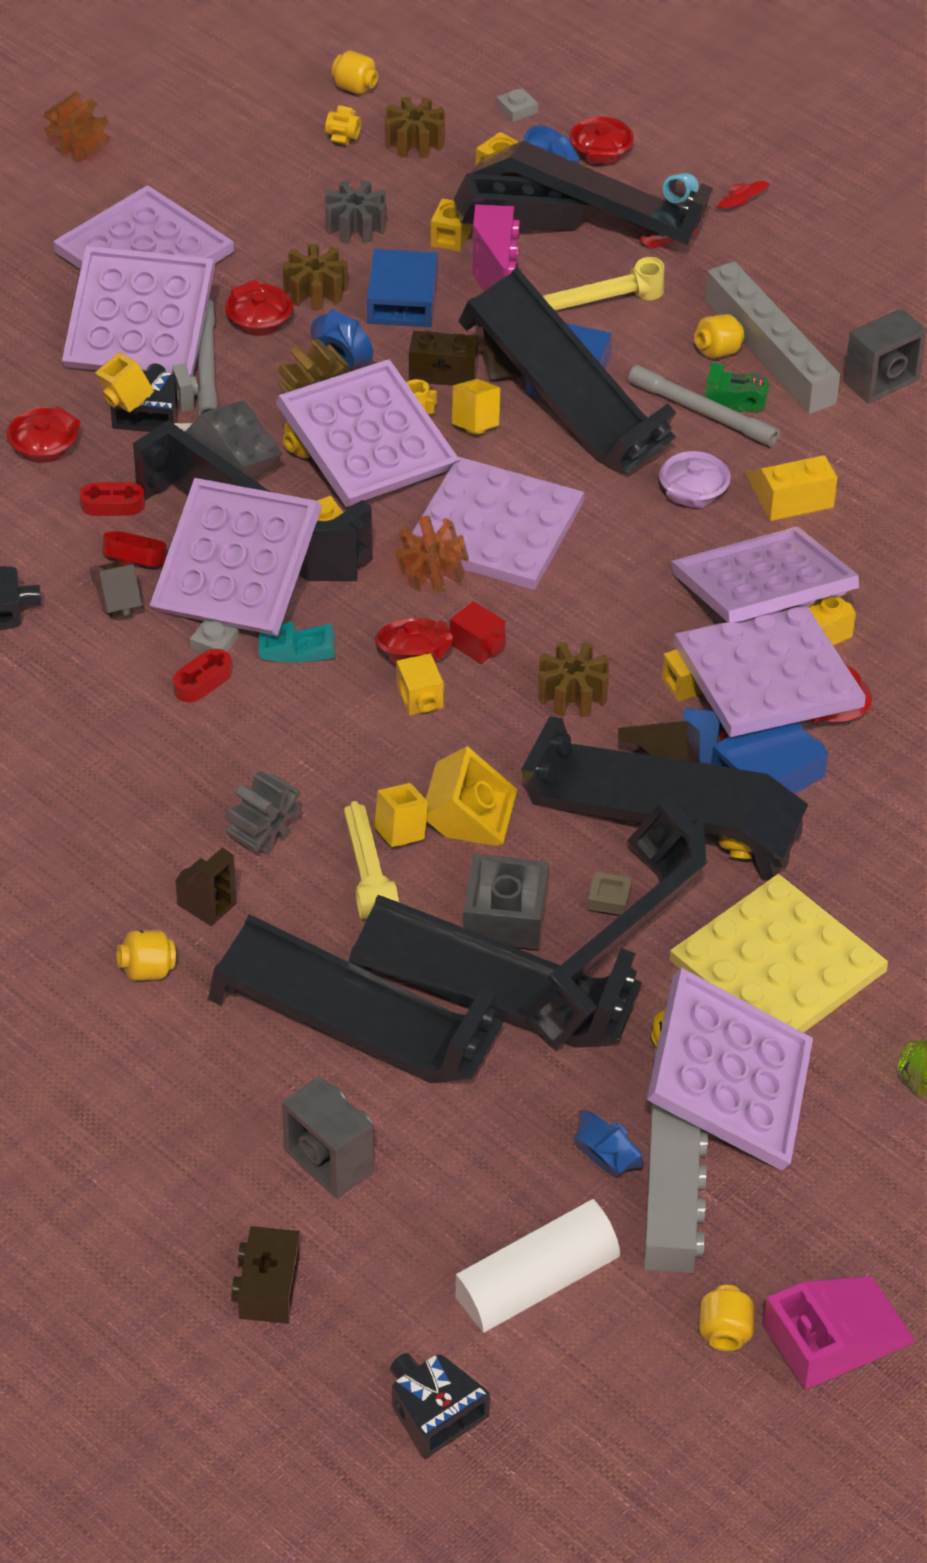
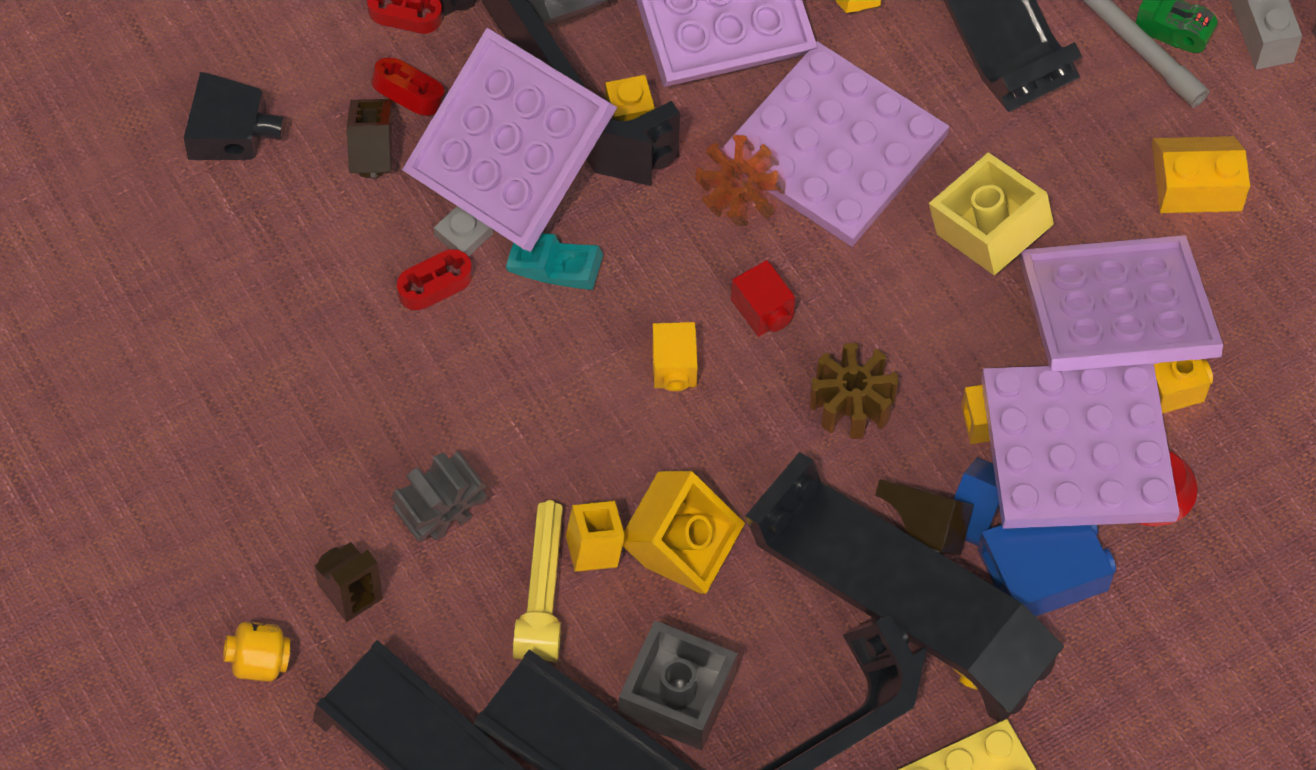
camera: 15 degrees right, 15 degrees up
(414, 638) = (684, 292): red piece -> none
(609, 893) = (803, 697): dark tan plate -> none
(641, 536) = (991, 213): none -> light yellow brick
(694, 478) = (1085, 136): lavender piece -> none

